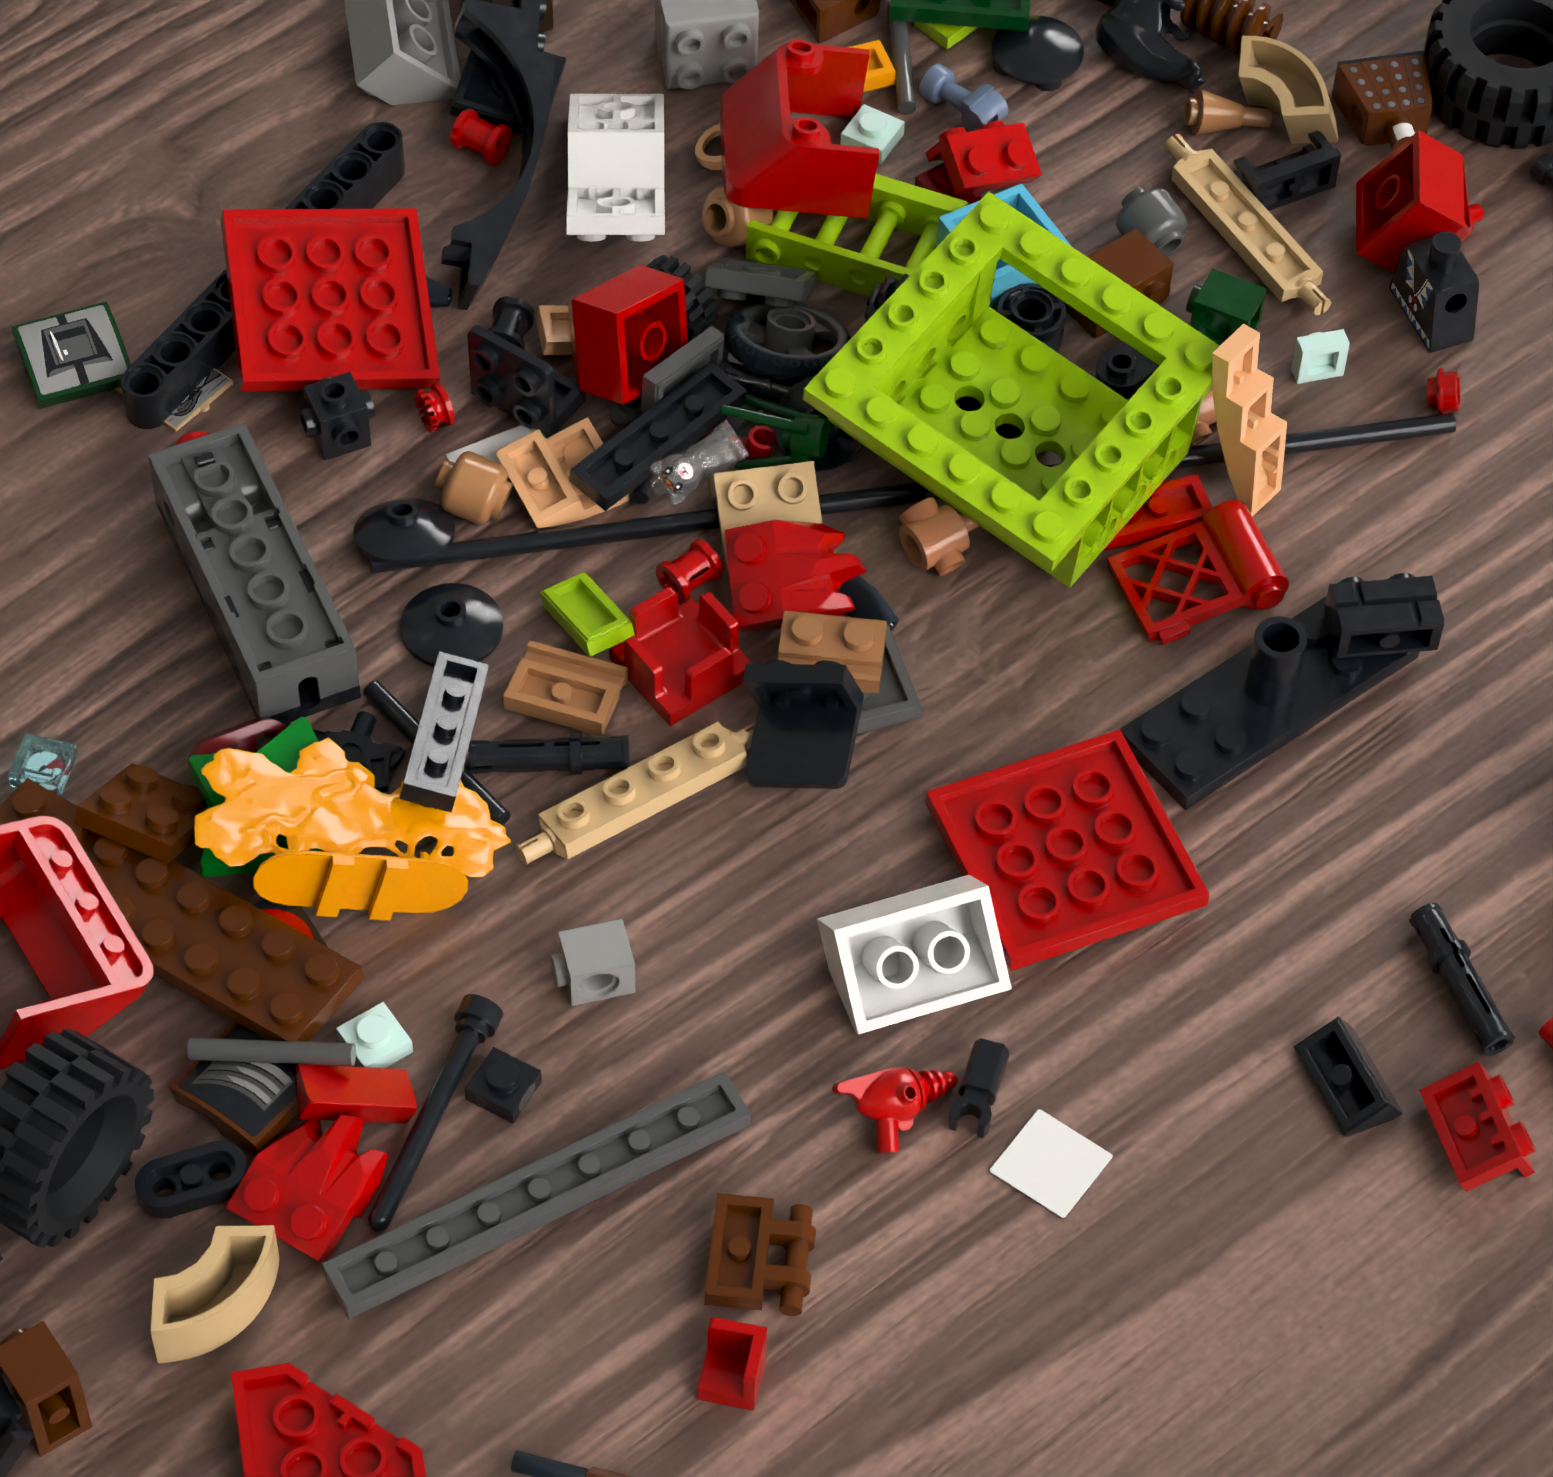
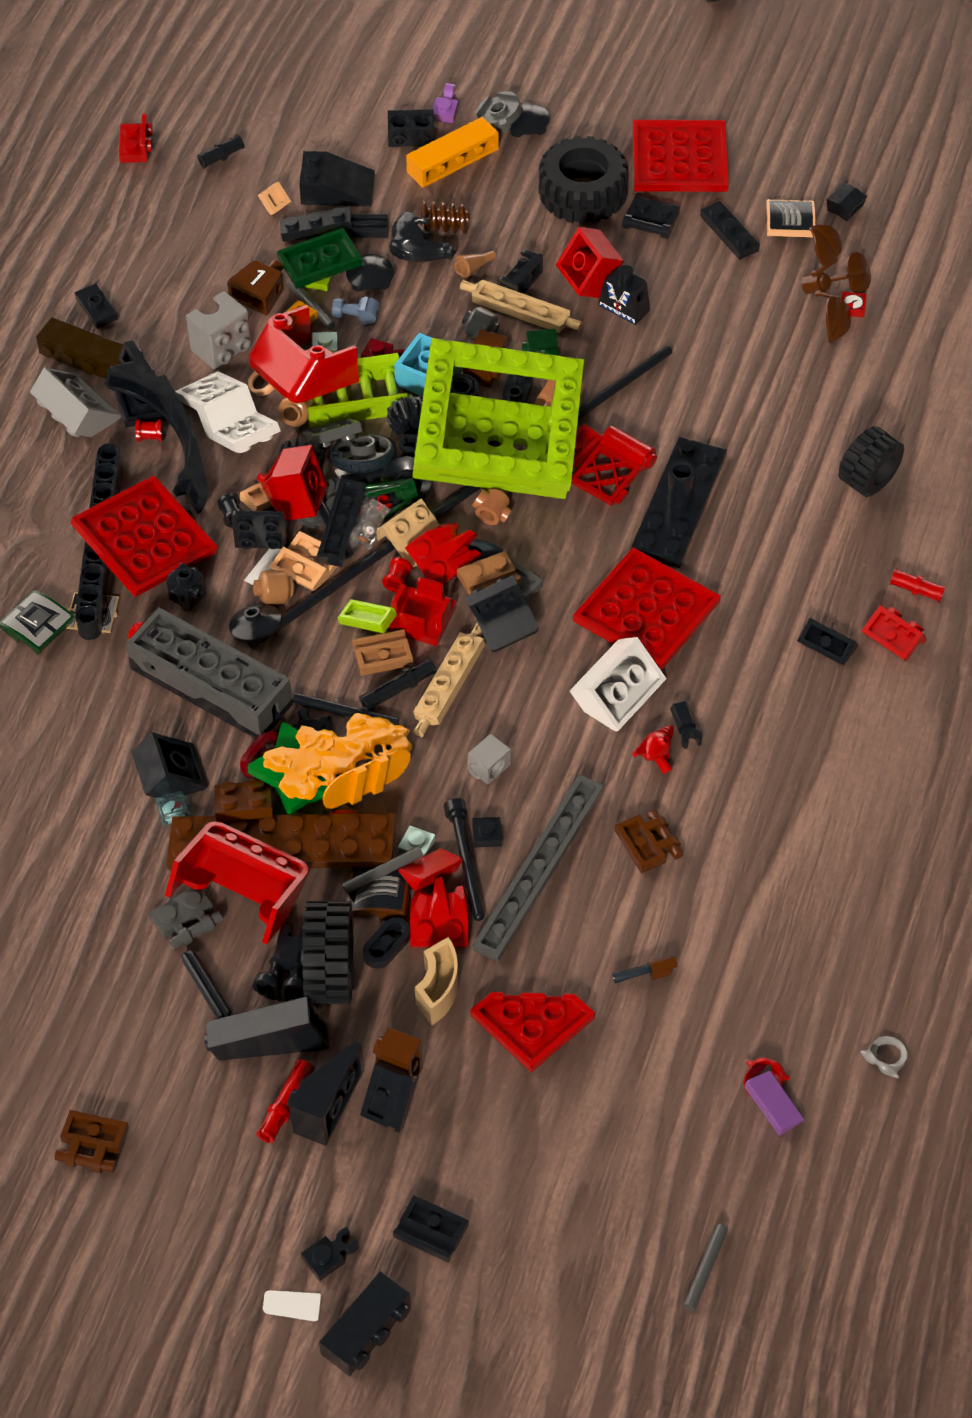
camera: 30 degrees left, 0 degrees up
(83, 693) = (168, 766): none -> black slope
(435, 407) = (226, 561): red bush -> none
(444, 732) = (349, 697): plate -> none
(469, 634) = (310, 660): black dish -> none
(681, 366) = (330, 488): dark grey tile -> none
(733, 1363) = (674, 888): red panel -> none
(986, 157) = (388, 330): red bracket -> none
(1051, 1163) = (735, 740): white sticker -> none
(1246, 428) = (600, 390): light nougat slope -> none
(1289, 85) = (497, 235): tan brick -> none
(1320, 356) = (595, 347): light aqua plate -> none
(1383, 616) = (708, 443): black brick -> none
(1384, 97) = (540, 222): reddish brown torso -> none
(1444, 391) = (657, 337): red plate -> none
(1451, 960) = (849, 580): black pin -> none

